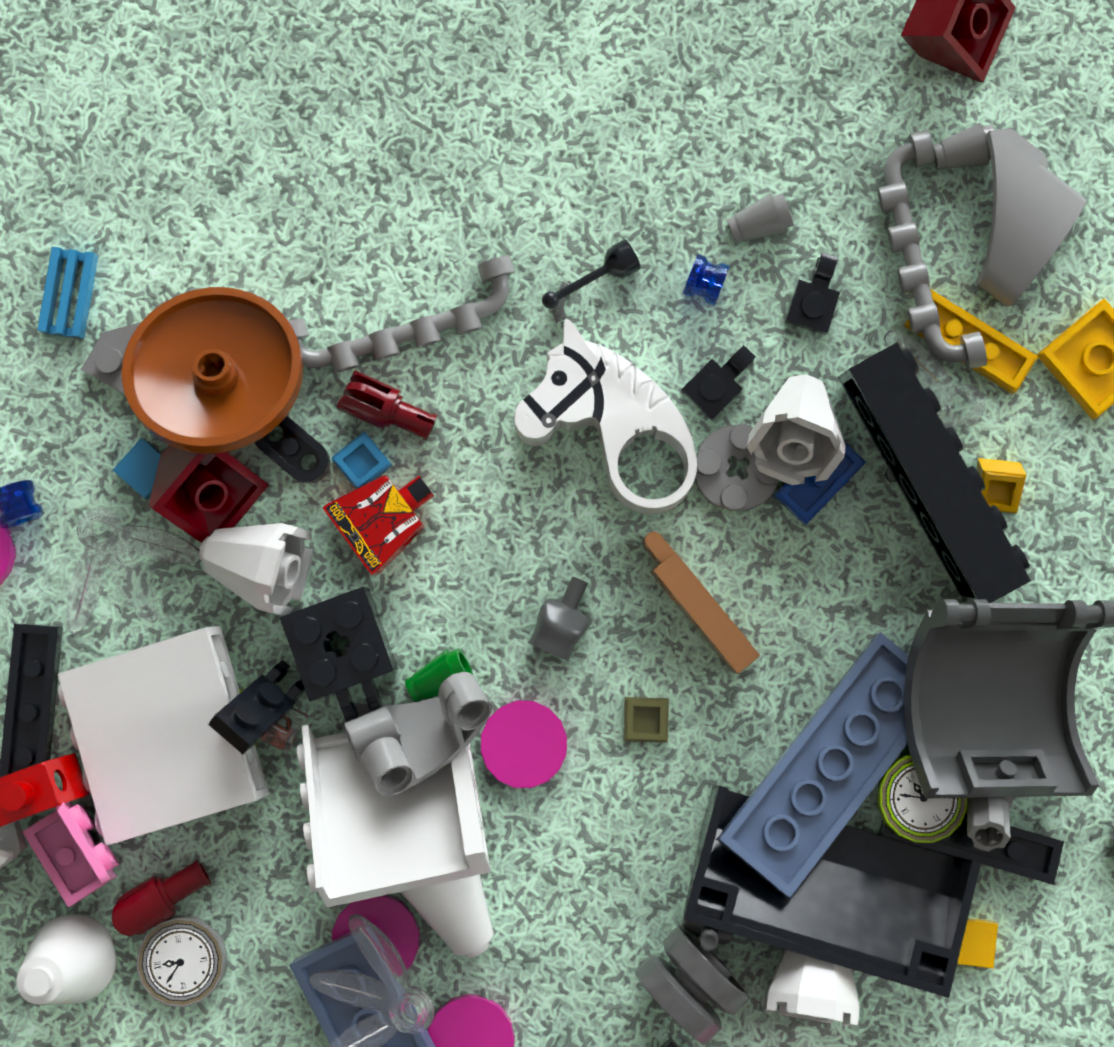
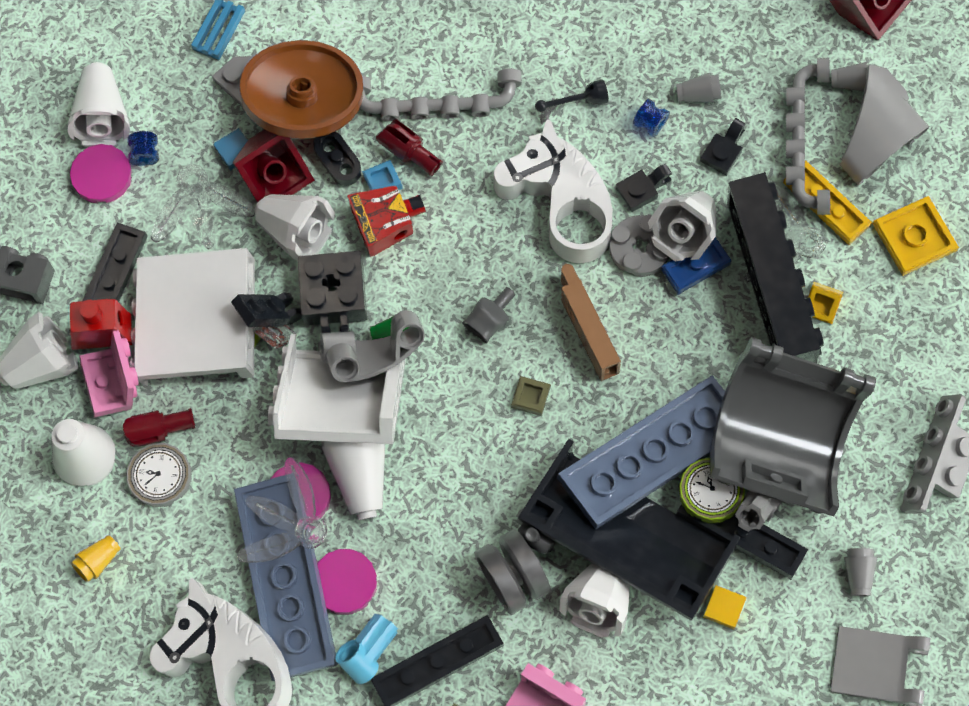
camera: 20 degrees right, 15 degrees down
(523, 744) = (440, 390): dark pink tile -> none

